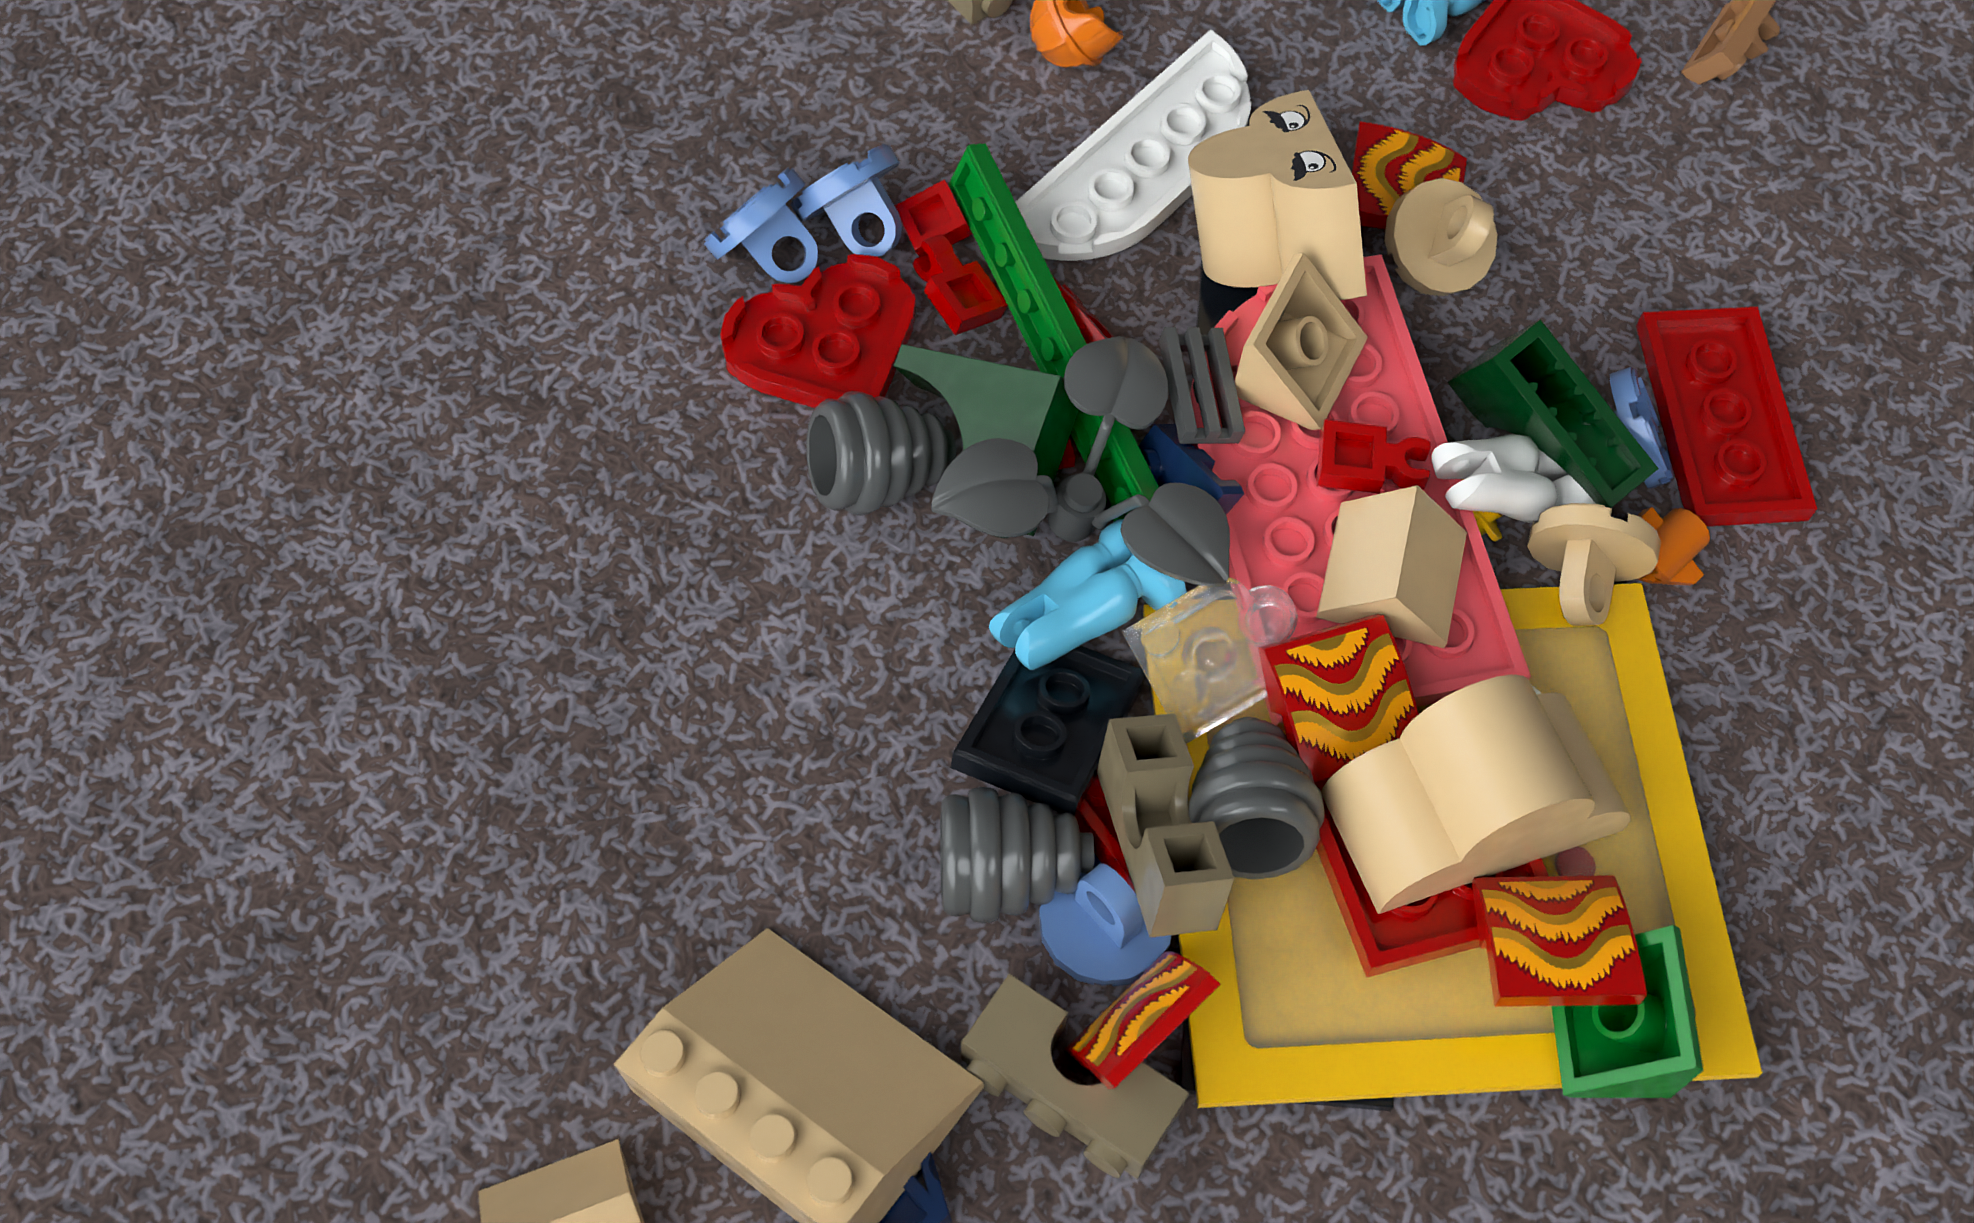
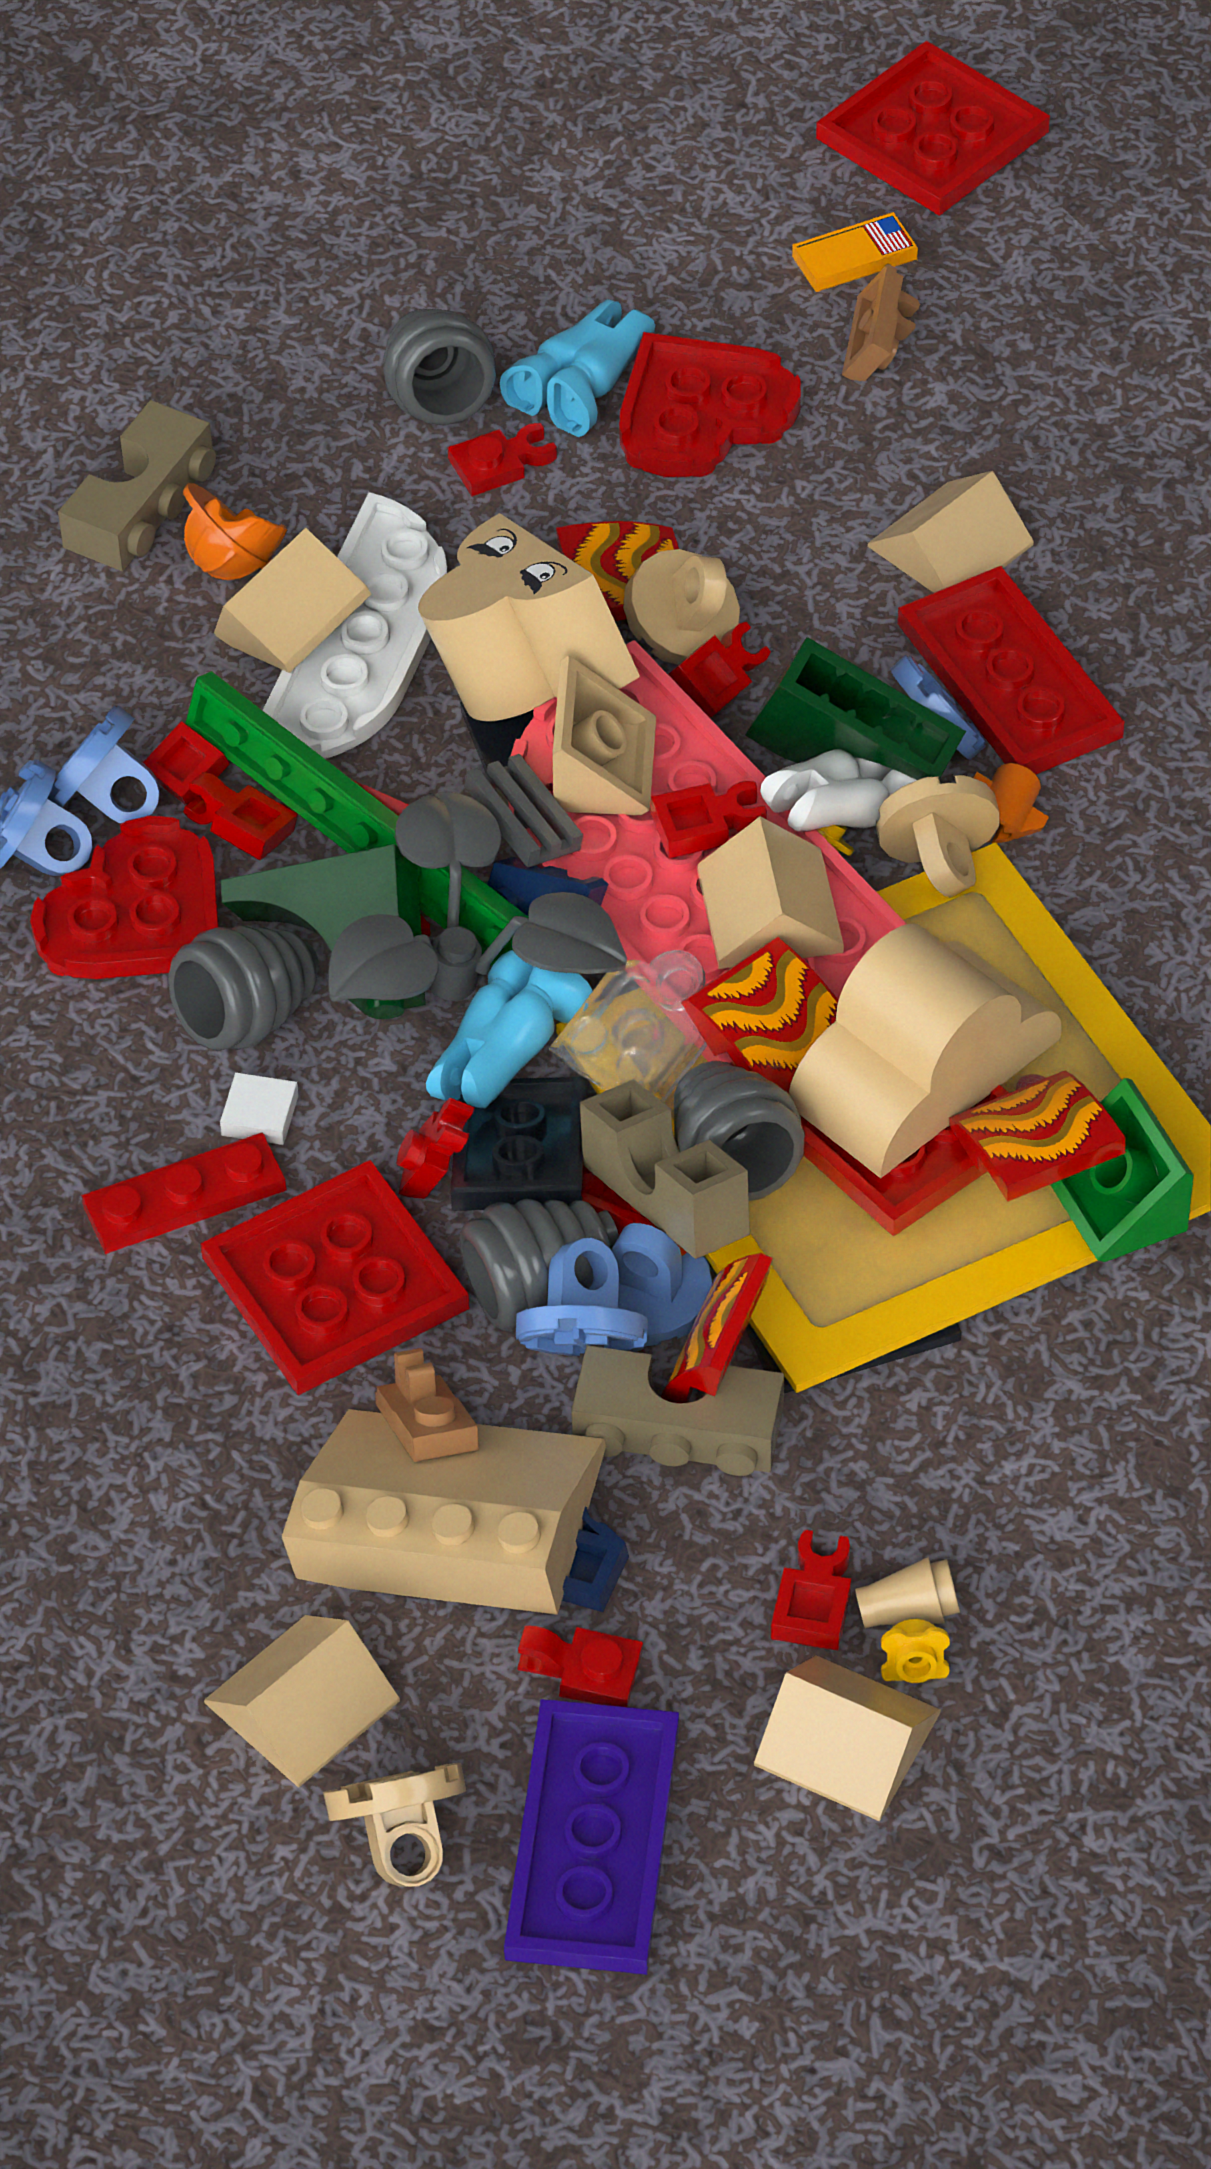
camera: 20 degrees left, 10 degrees down
(729, 635) = (184, 1193): none -> red plate
(818, 784) = (334, 1277): none -> red plate
(826, 977) = (425, 1410): none -> medium nougat plate
(836, 579) = (259, 1106): none -> white tile
(963, 691) = (428, 1152): none -> red plate
(1018, 944) = (580, 1314): none -> medium blue tile
(1092, 106) = (291, 604): none -> tan slope
(1338, 41) = (495, 461): none -> red plate
(1447, 311) = (718, 670): none -> red plate
(1726, 259) = (955, 533): none -> tan slope

